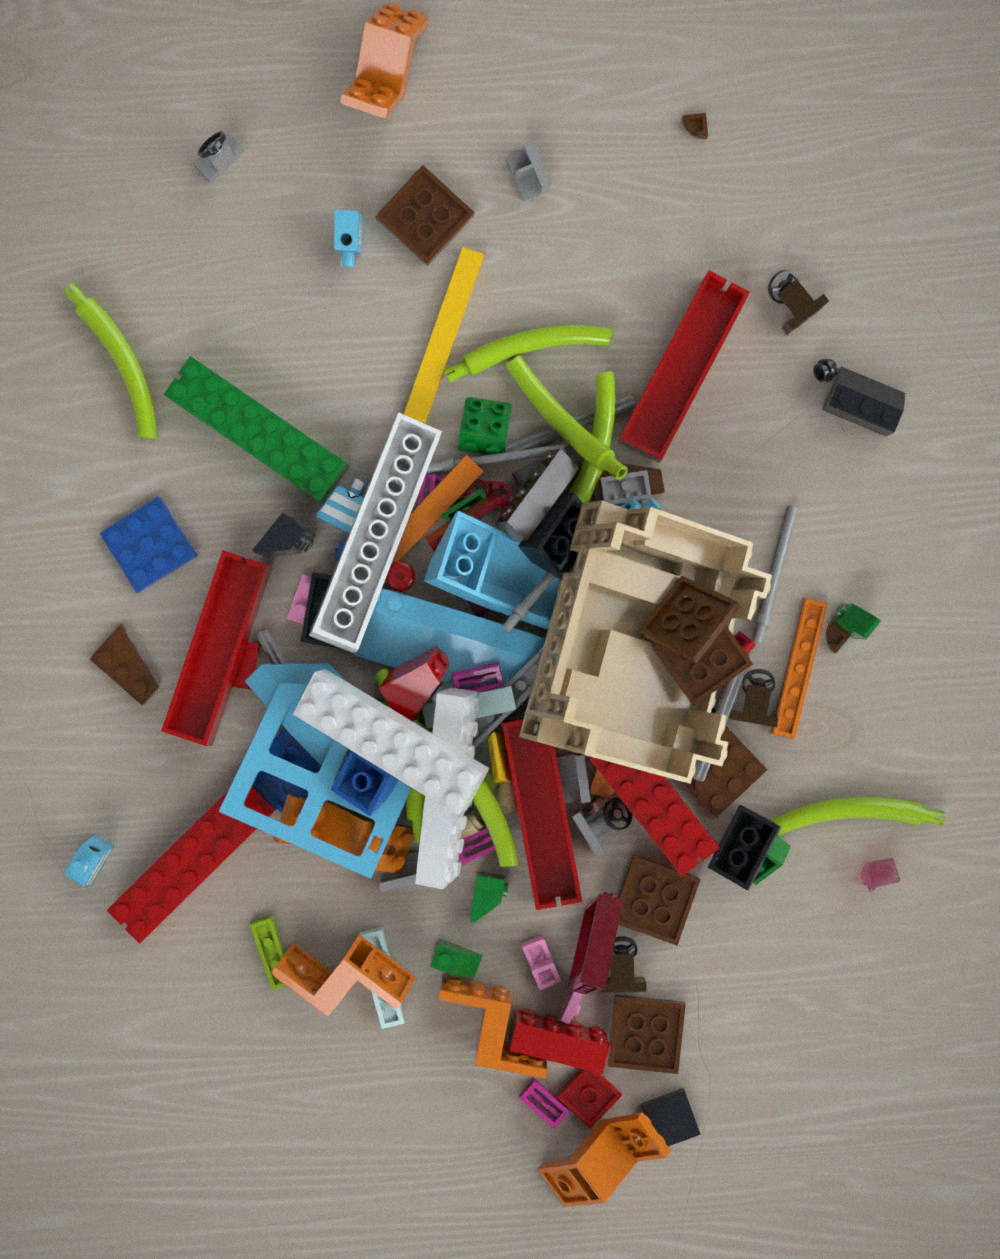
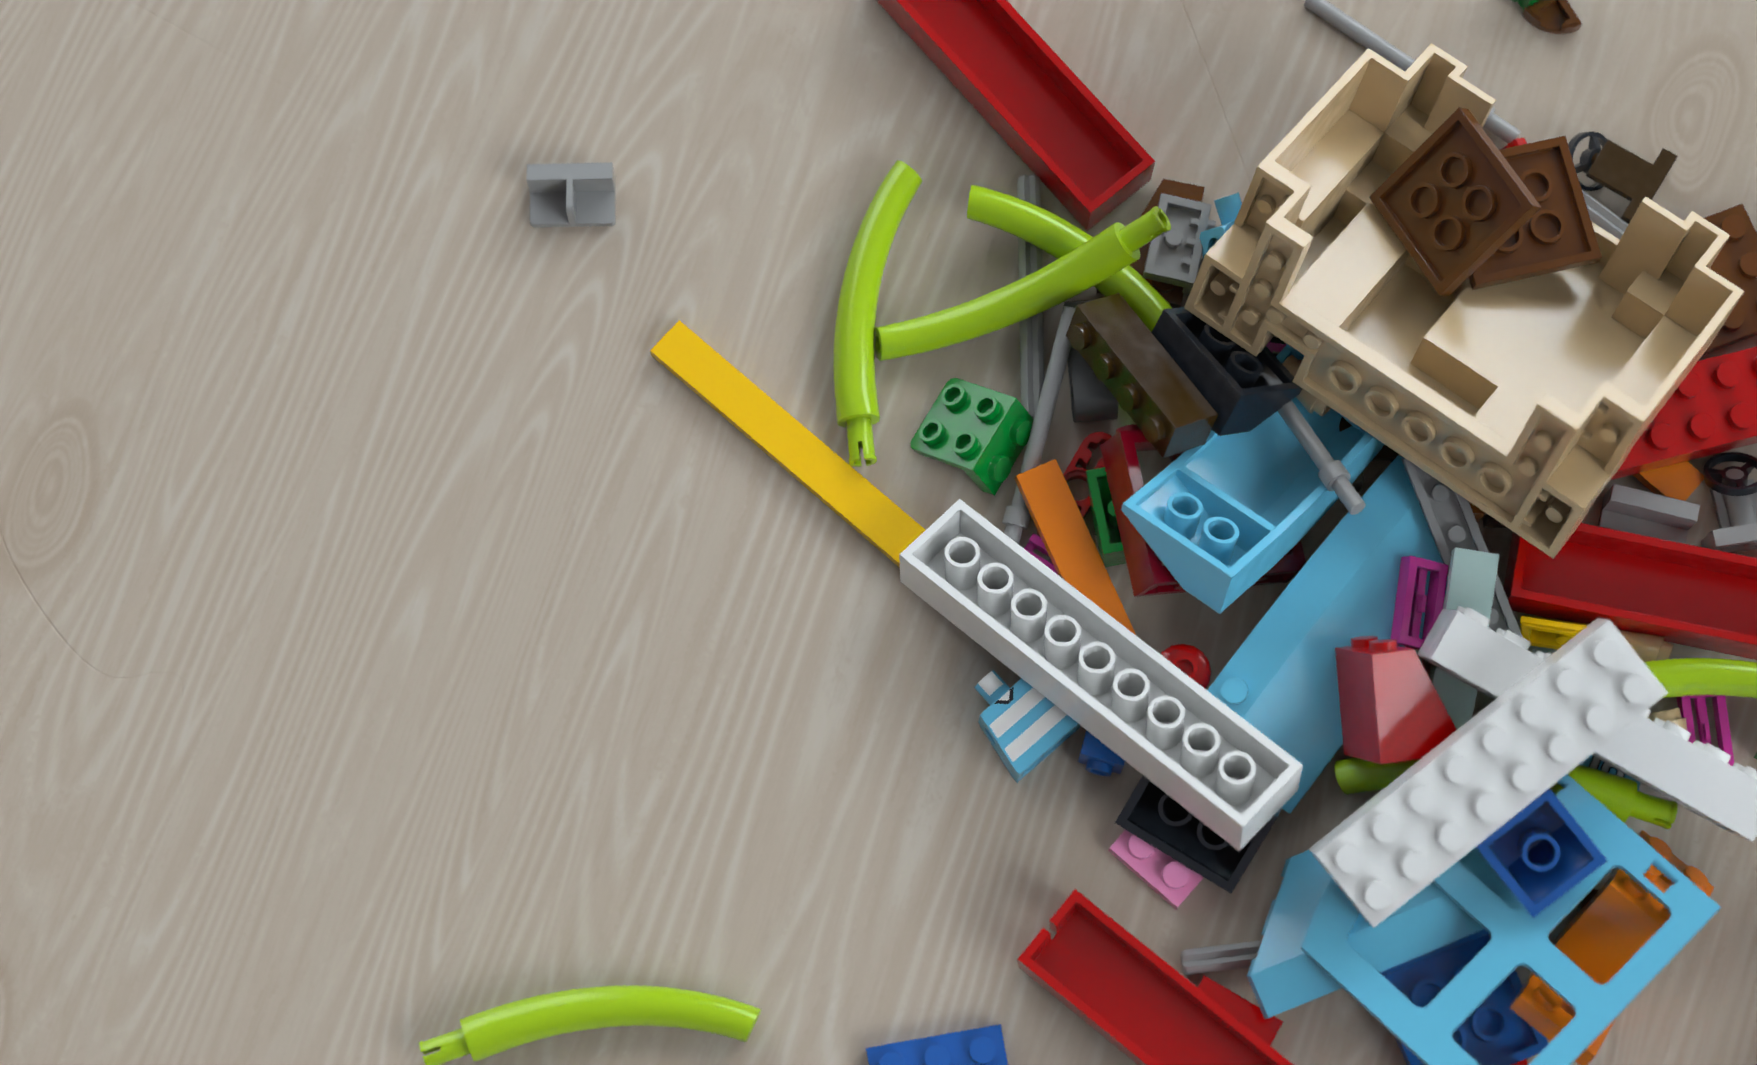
camera: 65 degrees left, 15 degrees down
(218, 154) = (308, 698): light grey piece -> none
(256, 430) = (821, 821): green piece -> none
(284, 538) = (1040, 833): black slope -> none
(348, 225) = (536, 516): medium azure torso -> none
(384, 60) = (286, 343): orange bracket -> none
(392, 881) = (1725, 870): light grey panel -> none
(425, 215) = (570, 390): reddish brown plate -> none
(593, 806) = (1710, 511): reddish brown tile -> none
(799, 667) = (1583, 89): orange tile -> none

